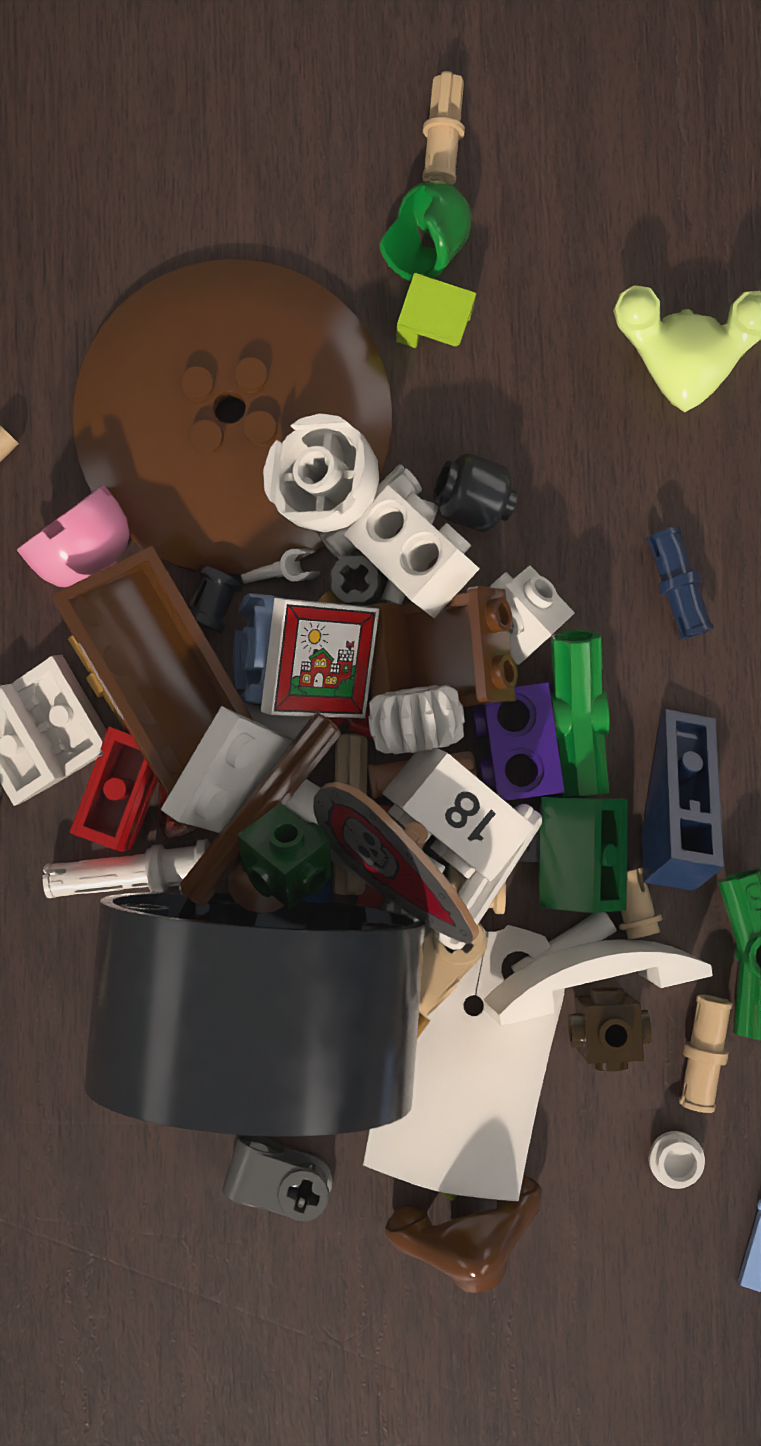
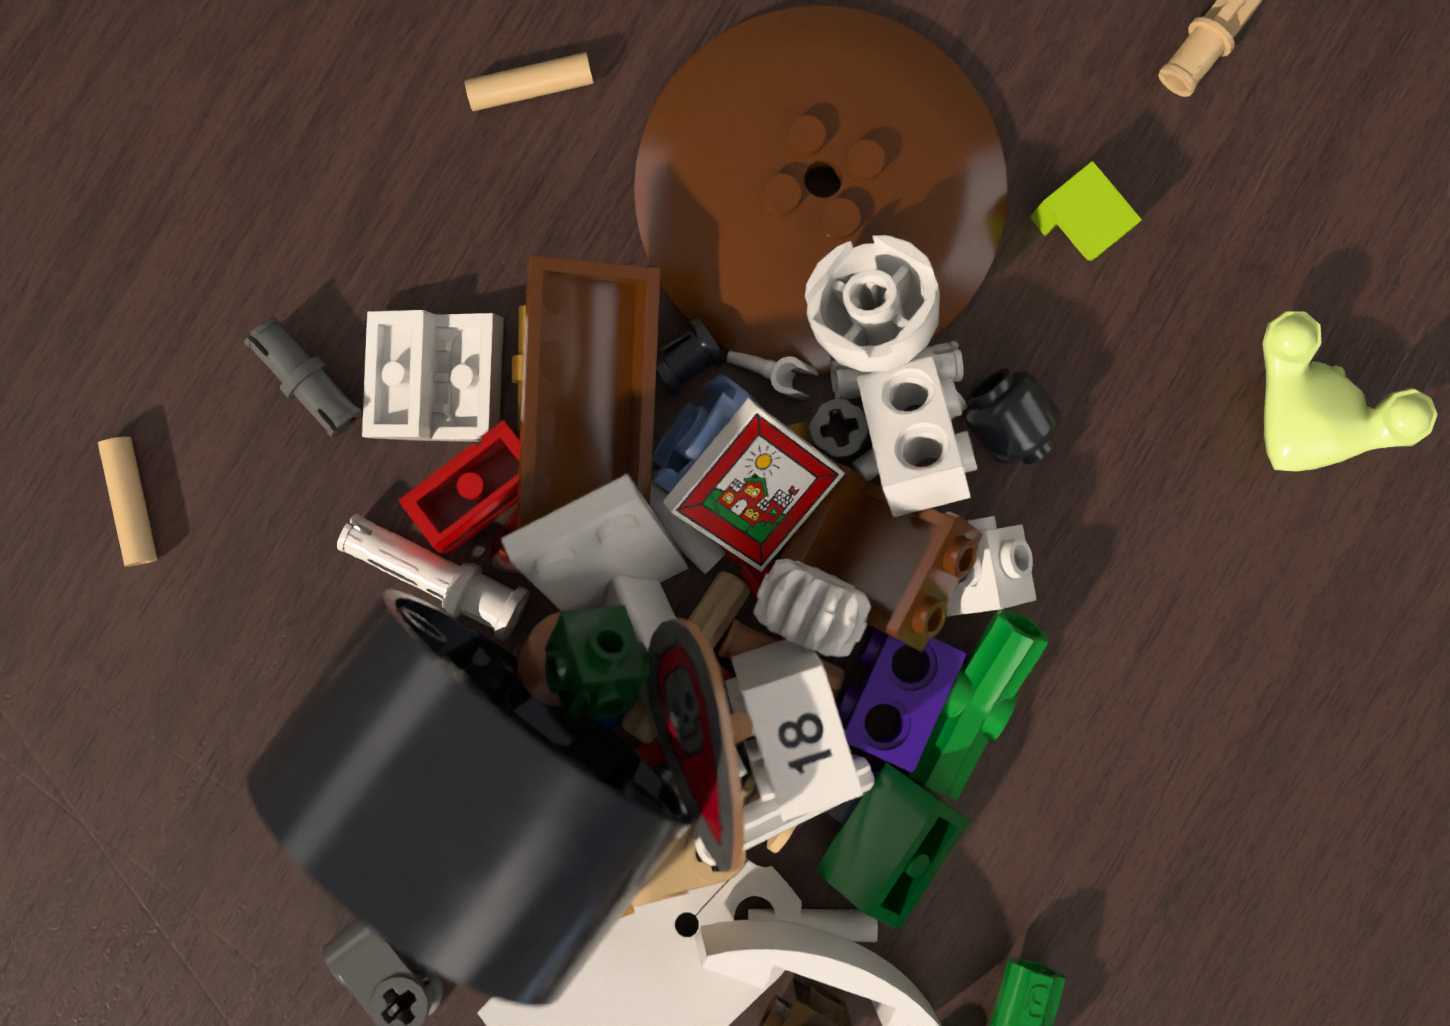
camera: 35 degrees right, 0 degrees up
(79, 541) = (591, 217): bright pink cylinder -> none
(274, 788) = (624, 587): reddish brown axle -> none
(440, 213) = (1155, 118): green hair -> none
(639, 916) = (909, 944): tan pin -> none
(679, 583) = (1160, 636): dark blue pin -> none
(683, 804) = (1023, 860): dark blue slope -> none

